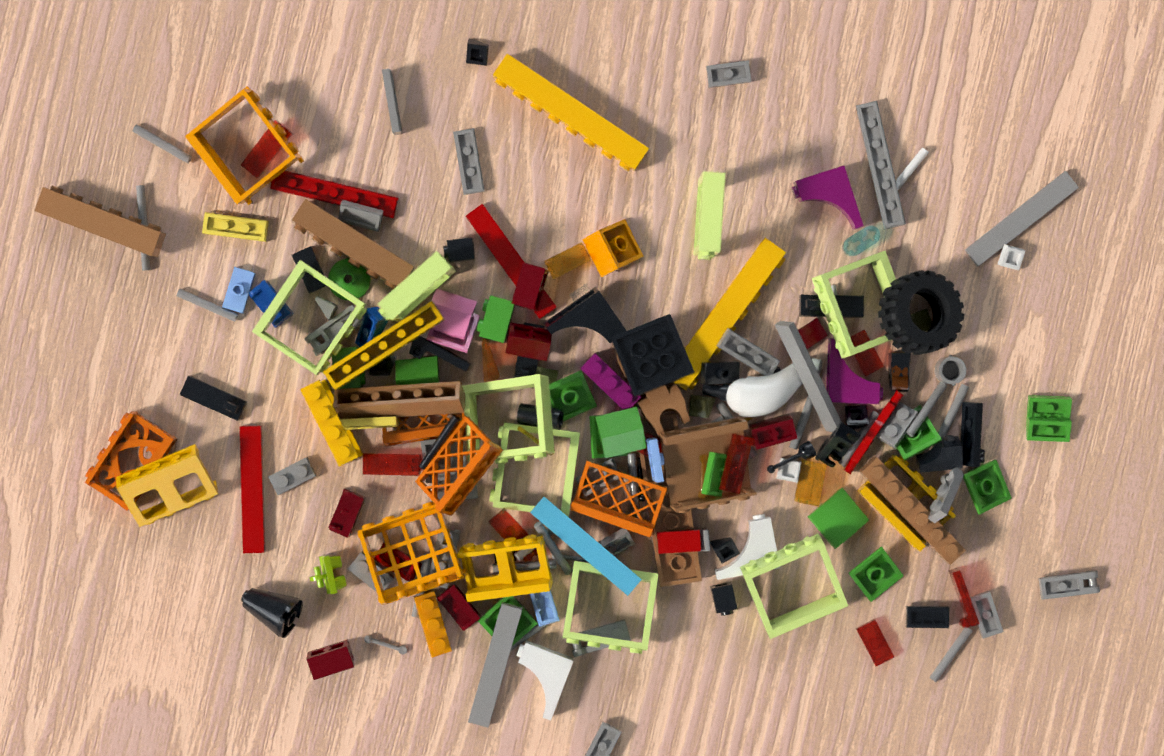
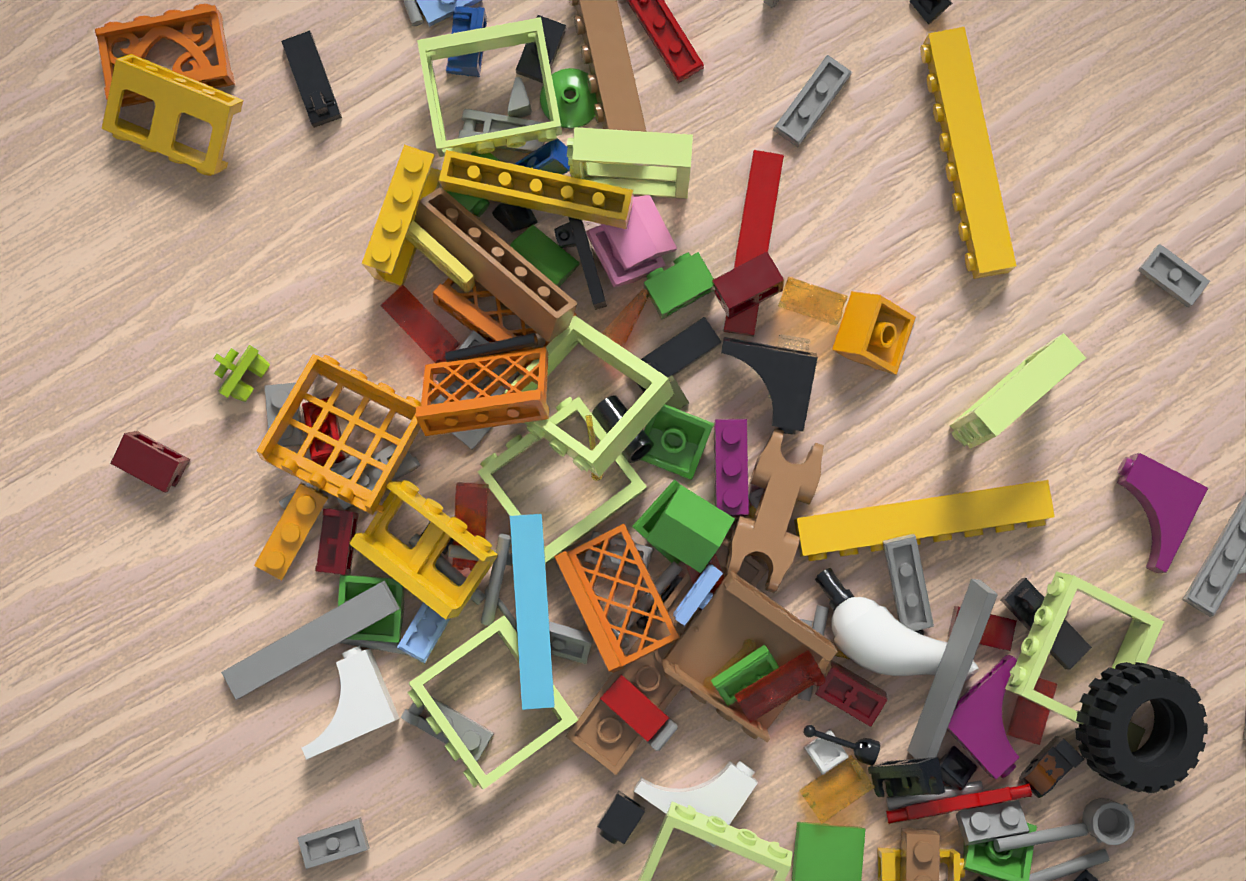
camera: 55 degrees right, 5 degrees down
(252, 489) = (254, 208): red tile -> none
(273, 609) = (145, 350): black cone -> none
(292, 476) = (308, 236): light grey plate -> none
(346, 513) = (323, 329): dark red hinge -> none
(360, 215) = (647, 44): light grey tile -> none
(402, 649) = (233, 527): light grey hinge -> none
(459, 250) = (713, 178): black brick -> none
(528, 341) = (689, 340): dark red hinge -> none
(652, 355) = (805, 482): black plate -> none
(701, 406) = (801, 589): olive slope -> none
(719, 372) = (857, 572): black plate -> none
(724, 549) = (674, 766): black slope -> none
(802, 423) = (891, 716): light grey bar -> none
(863, 244) = (1142, 594): clear light blue beam -> none

